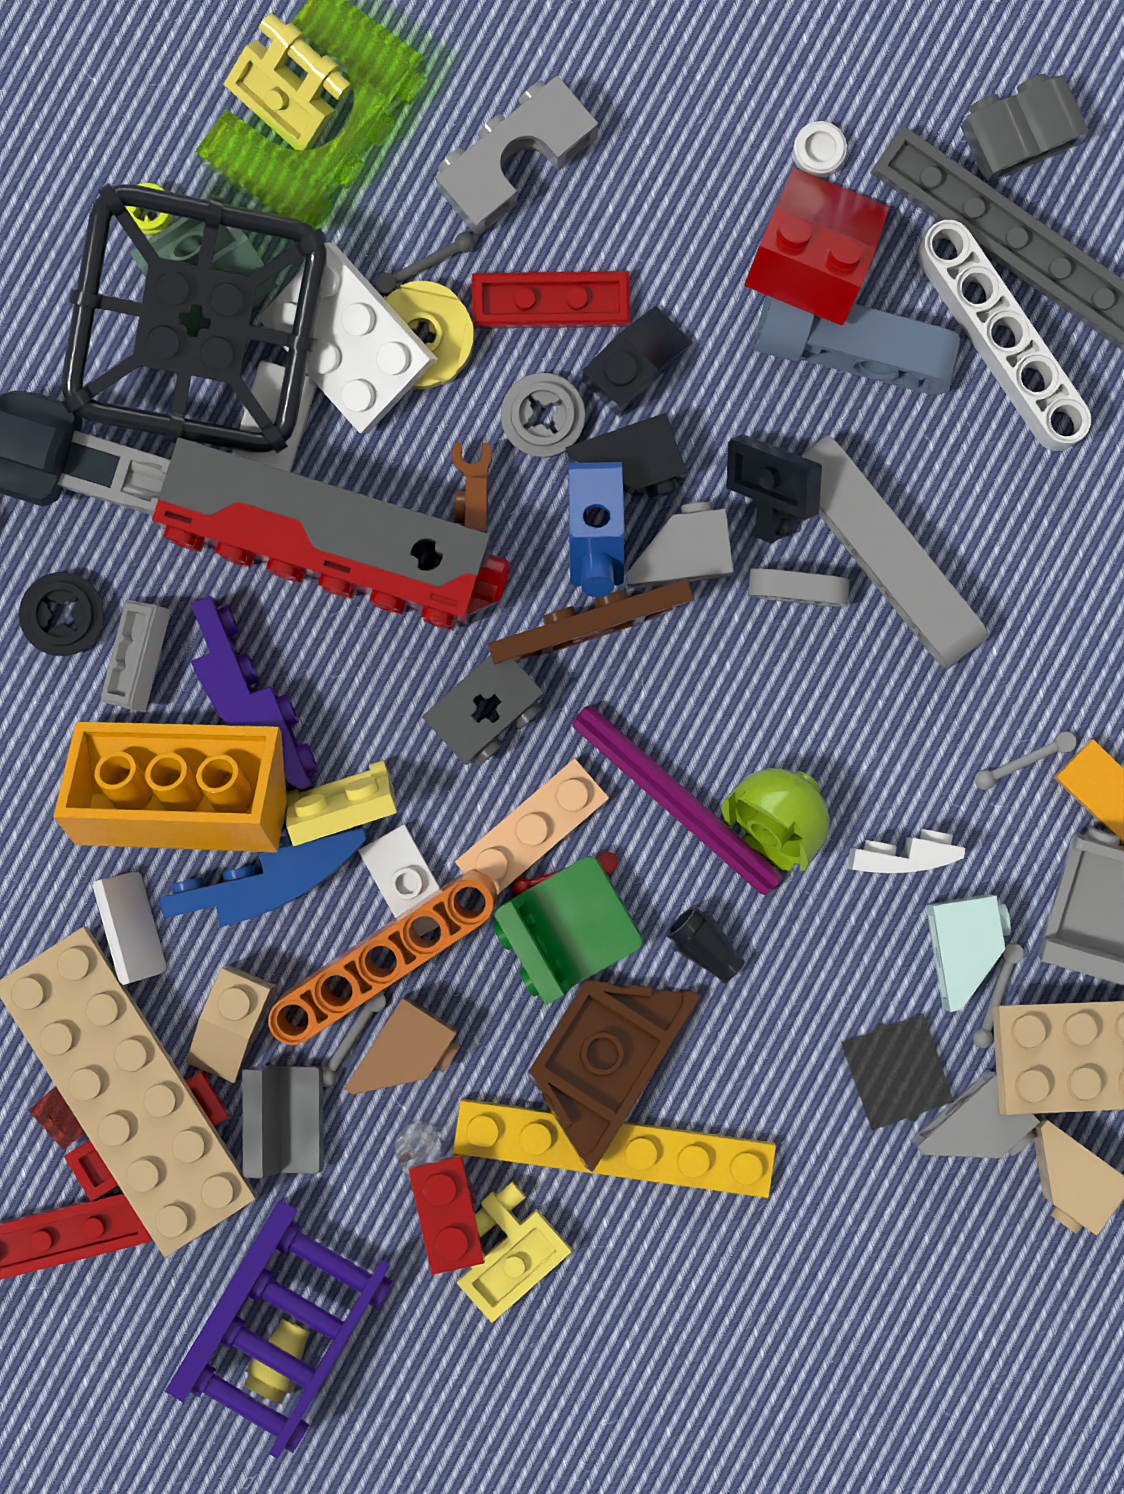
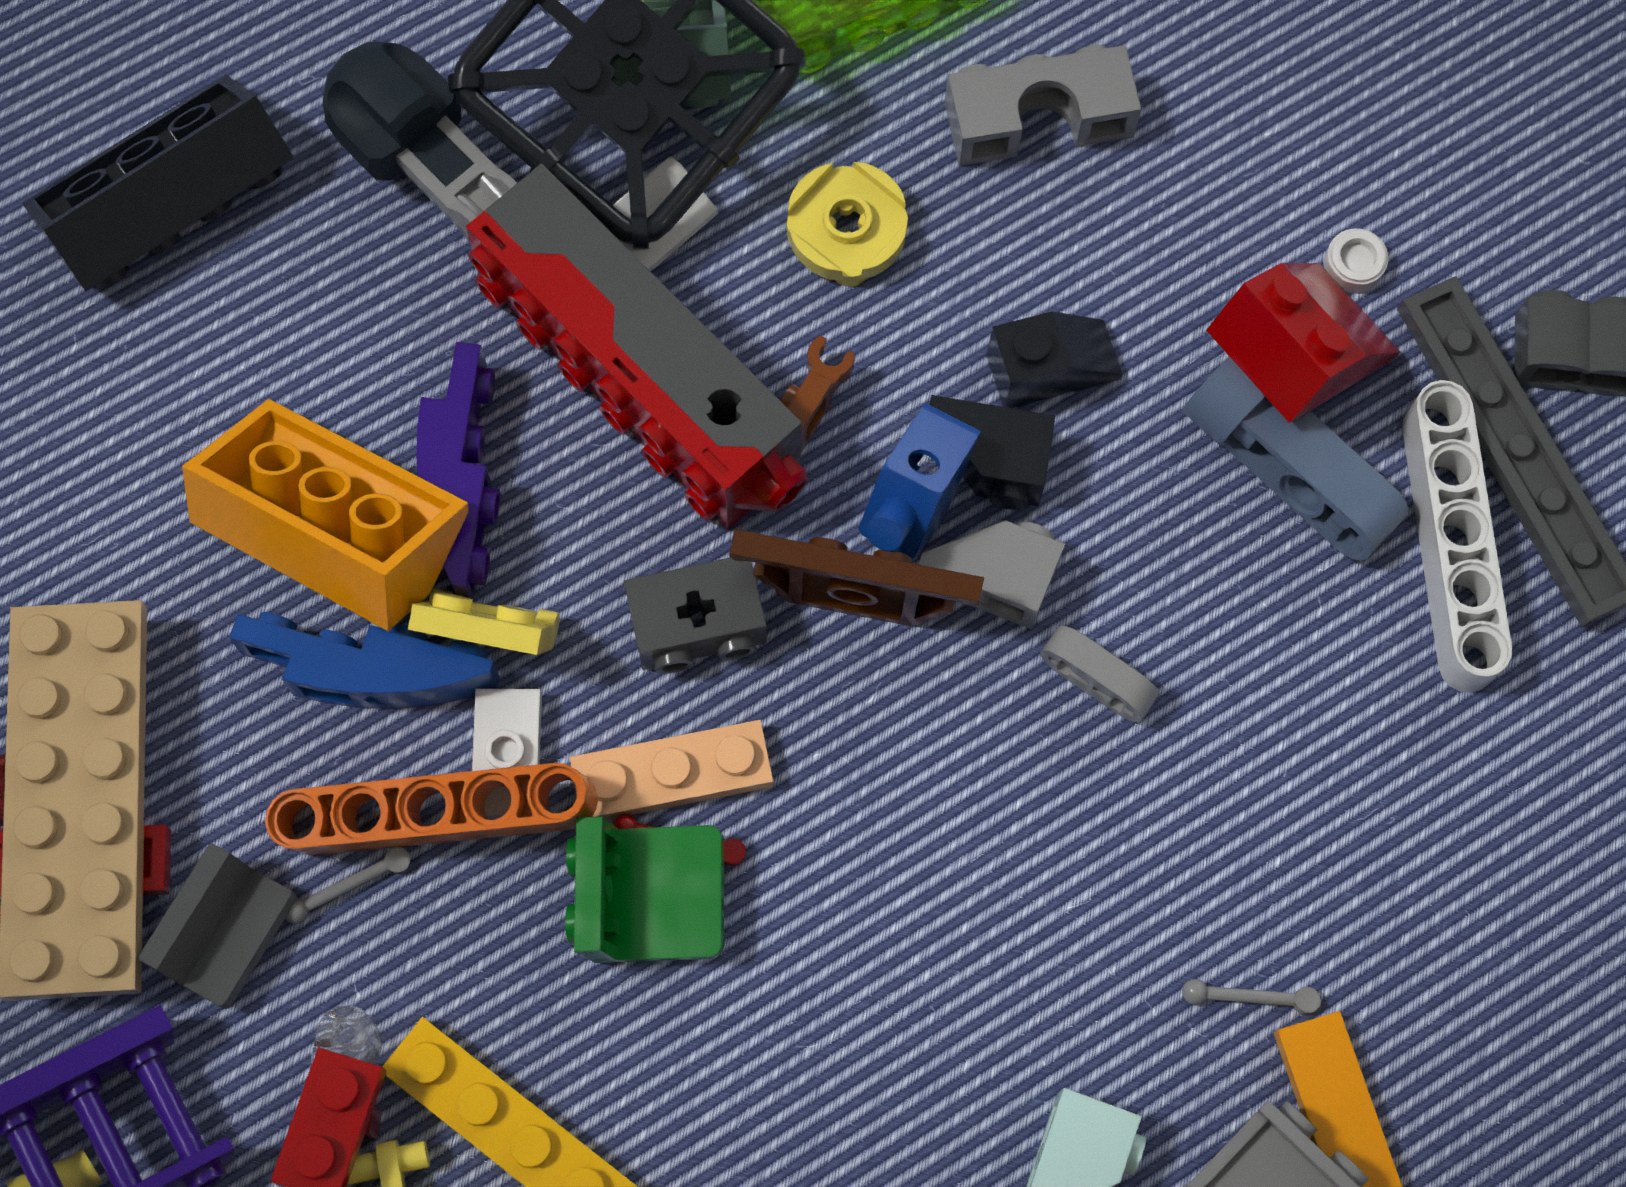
camera: 30 degrees right, 15 degrees down
(36, 614) = (298, 283): black gear -> none
(129, 927) = (189, 636): white slope -> none
(135, 655) = (370, 370): light grey plate -> none
(230, 1022) = (228, 790): tan slope -> none
(363, 347) = (781, 193): white plate -> none
(388, 282) = (941, 160): dark grey hinge -> none
(405, 1049) = (395, 924): medium nougat slope -> none
(546, 390) = (944, 342): light grey gear -> none
(551, 300) = (997, 258): red tile -> none
(605, 1058) = (606, 1057): reddish brown wing -> none
(676, 800) = (845, 828): magenta axle -> none
(704, 943) = (788, 996): black cone -> none
(778, 483) = (1134, 549): black hinge -> none
(781, 815) = (947, 896): lime cylinder -> none
(894, 558) = (1215, 691): light grey beam -> none
(920, 854) = (1084, 1031): white slope -> none

